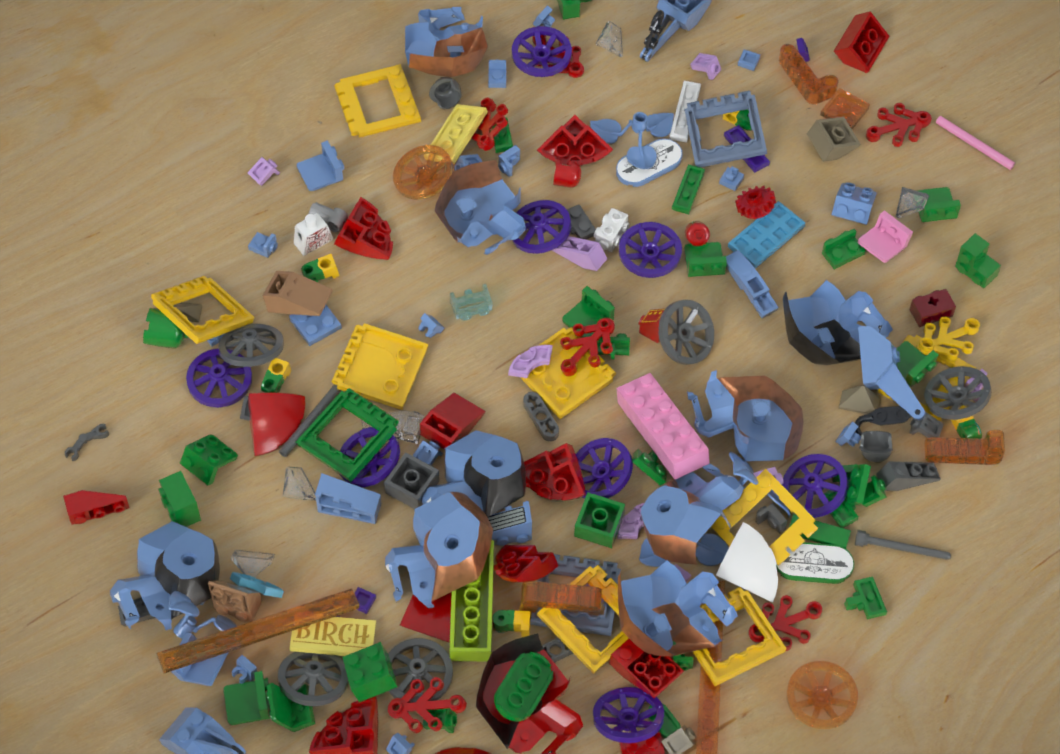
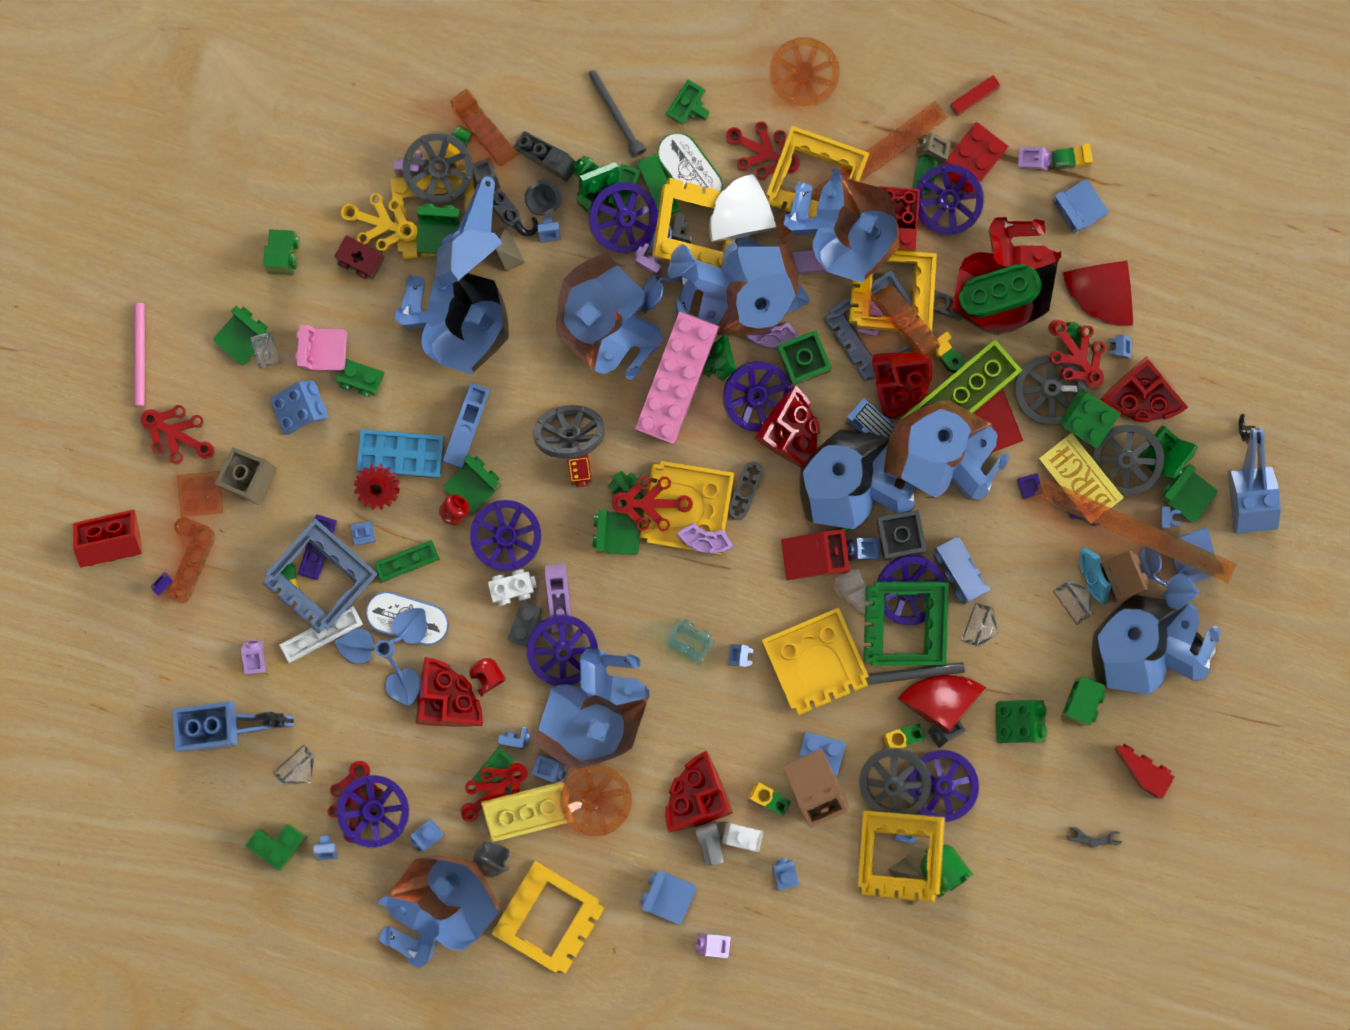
camera: 130 degrees left, 25 degrees up
(749, 60) = (211, 626): medium blue tile -> none

